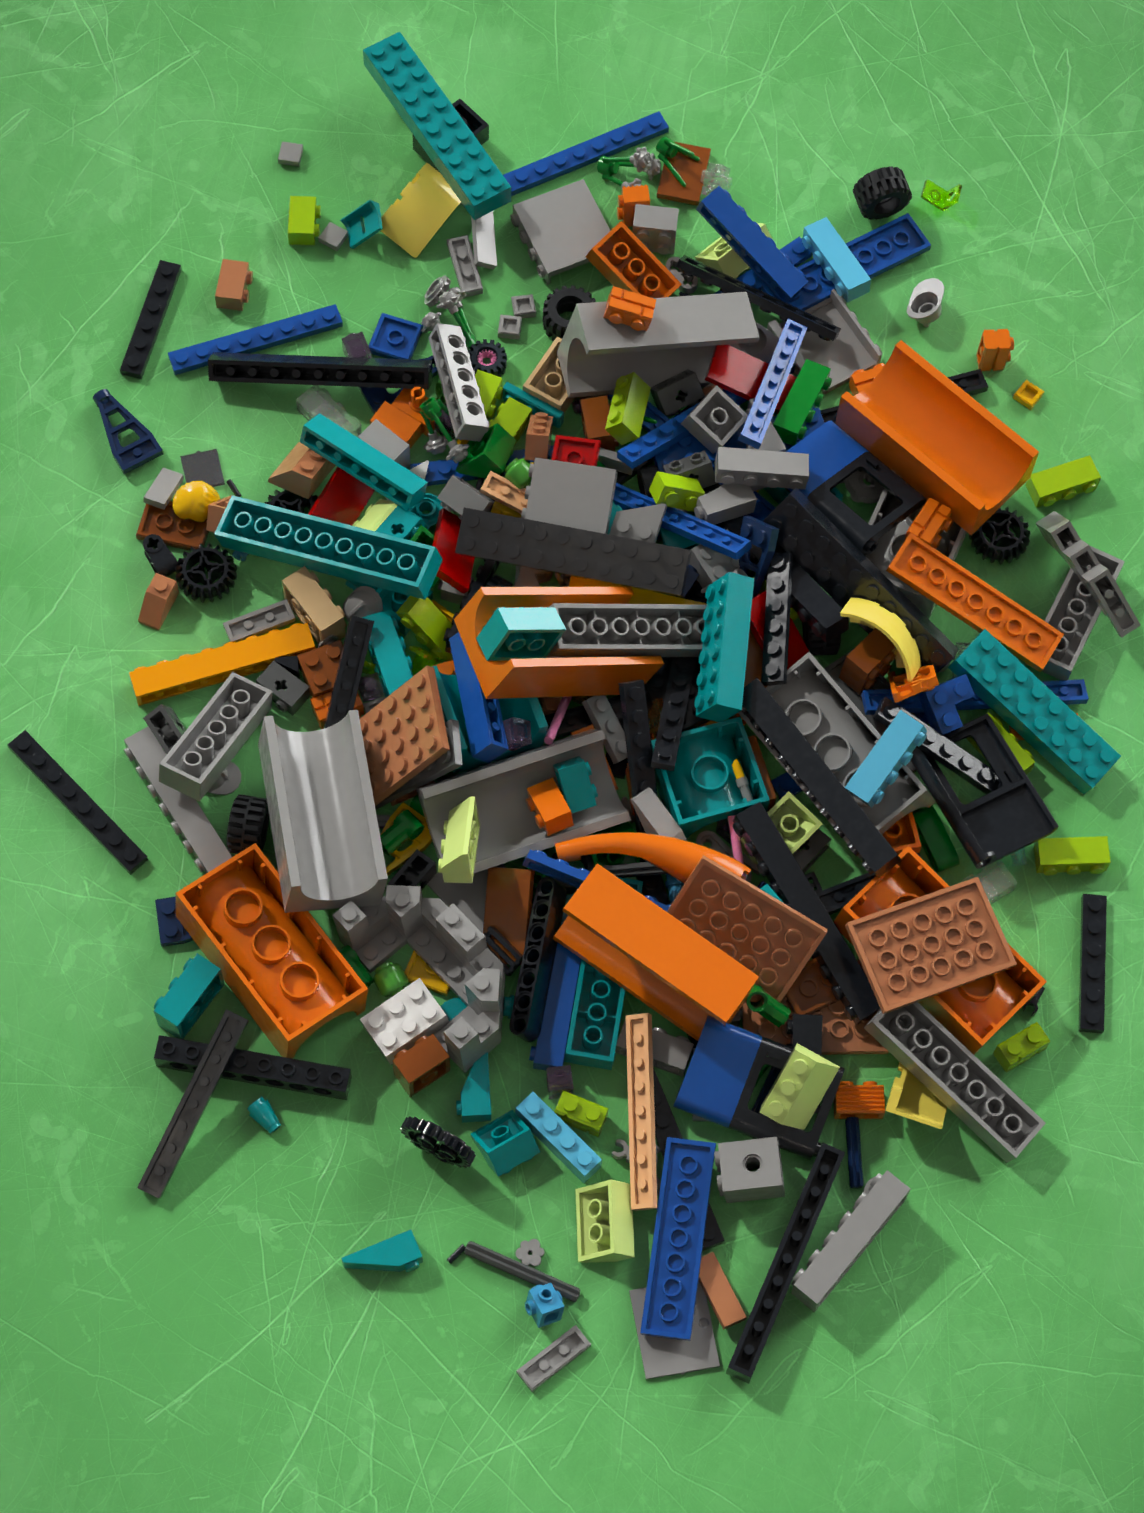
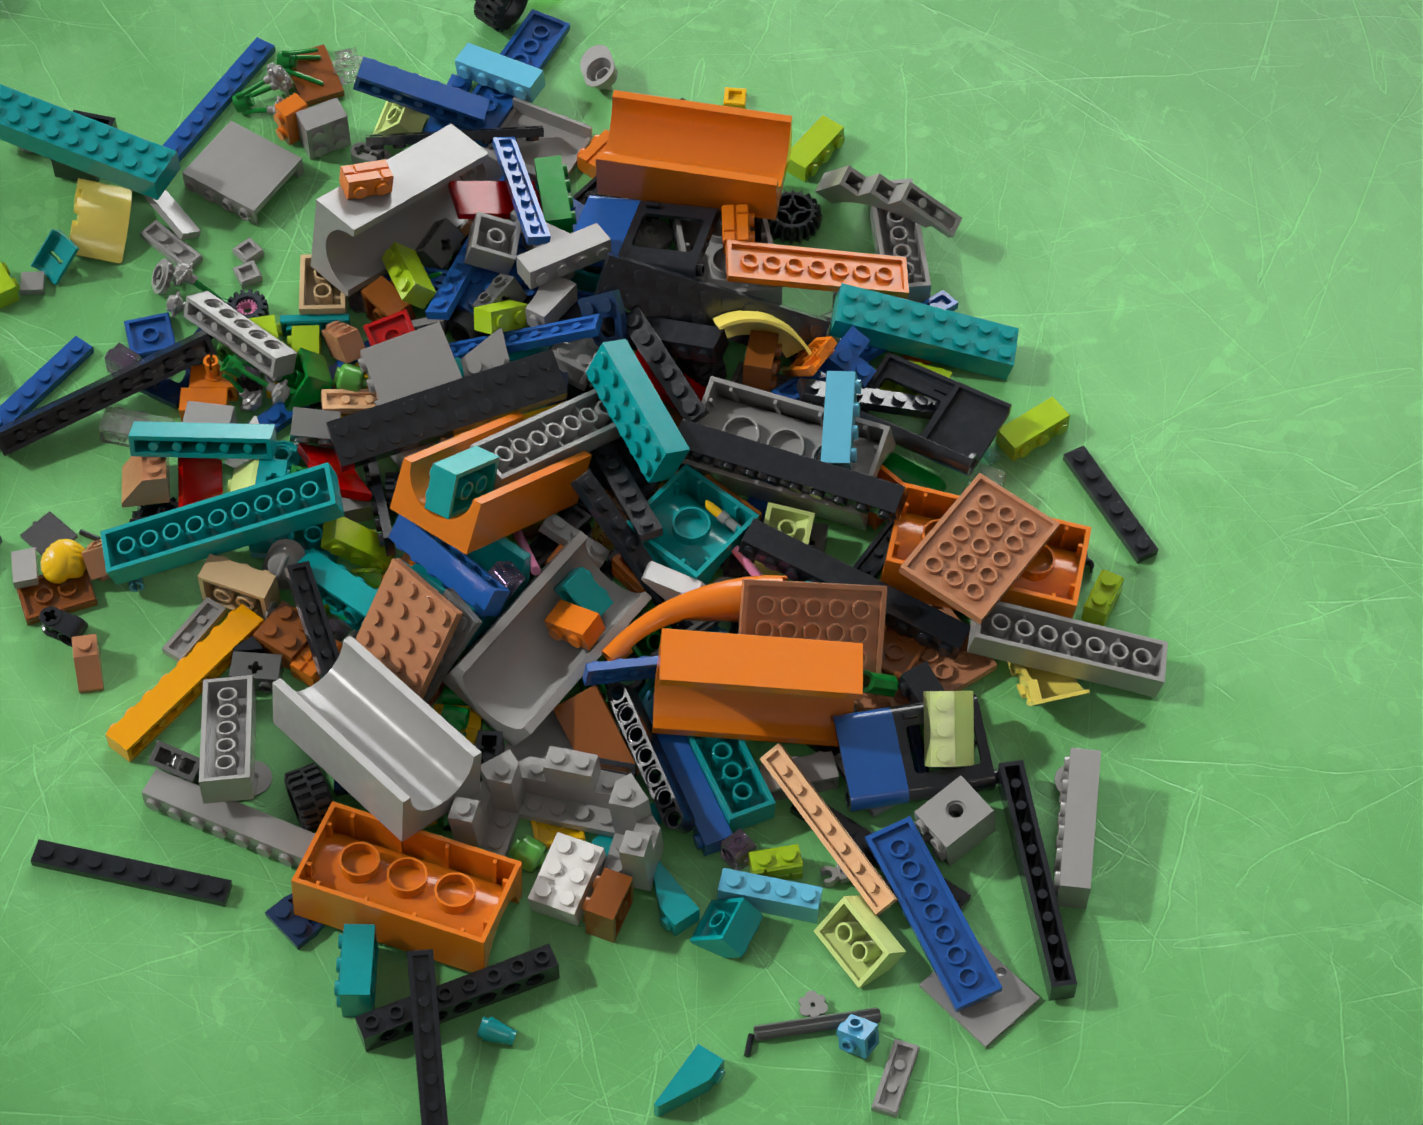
camera: 30 degrees left, 10 degrees down
(189, 577) = (113, 625): black gear -> none
(448, 1150) = (671, 955): black gear -> none
(461, 843) = (518, 694): yellowish green slope -> none
(558, 303) = (289, 223): black tyre -> none
(631, 264) = (317, 162): orange brick -> none
(720, 1292) = (999, 938): nougat tile -> none
(854, 1152) = (1032, 769): dark blue axle -> none
(859, 1101) = (1004, 717): orange brick -> none
(994, 349) = (684, 75): orange brick -> none

